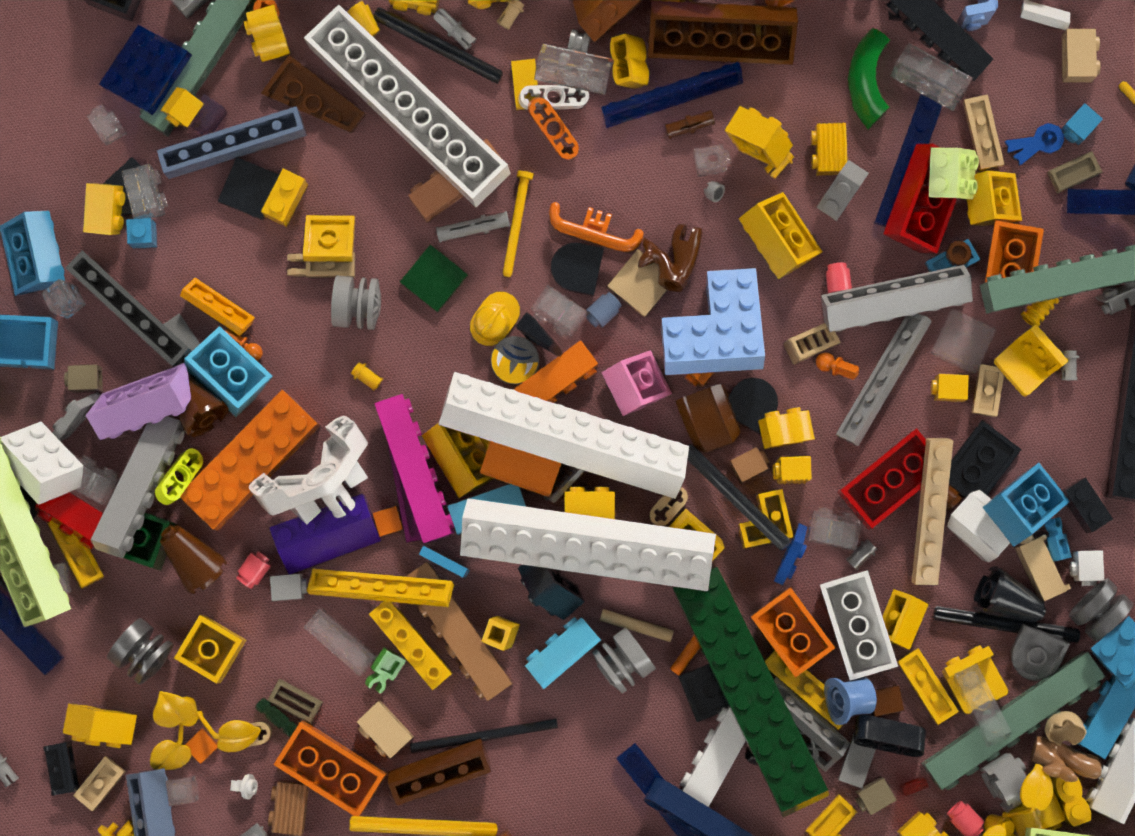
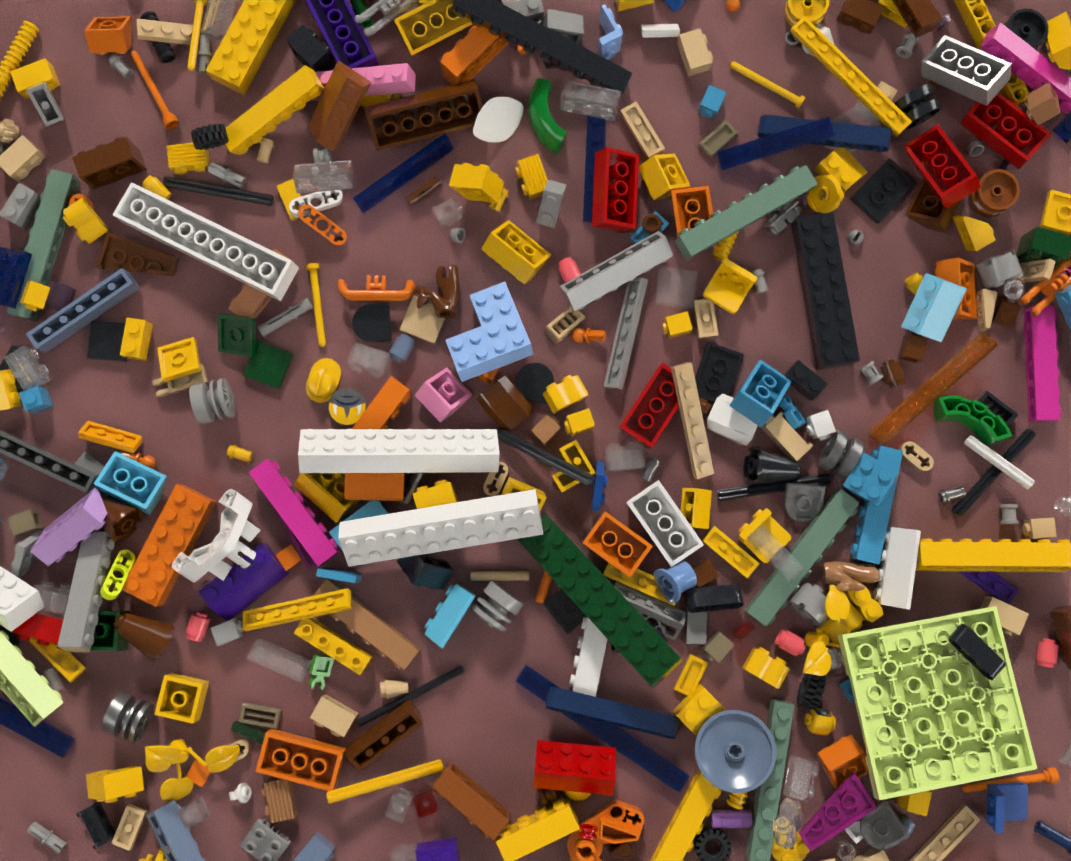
camera: 20 degrees left, 0 degrees up
(408, 230) = (236, 334): none -> dark green tile
(465, 719) = (393, 688): none -> tan cone
(500, 633) = (398, 615): yellow brick -> none
(535, 332) = (356, 381): black slope -> none
(629, 61) = (363, 158): yellow brick -> none
(809, 64) = (498, 119): none -> white sticker
(953, 173) = (628, 164): yellowish green bracket -> none
(1047, 139) = (690, 121): blue piece -> none
(1065, 727) = (842, 550): tan hair -> none

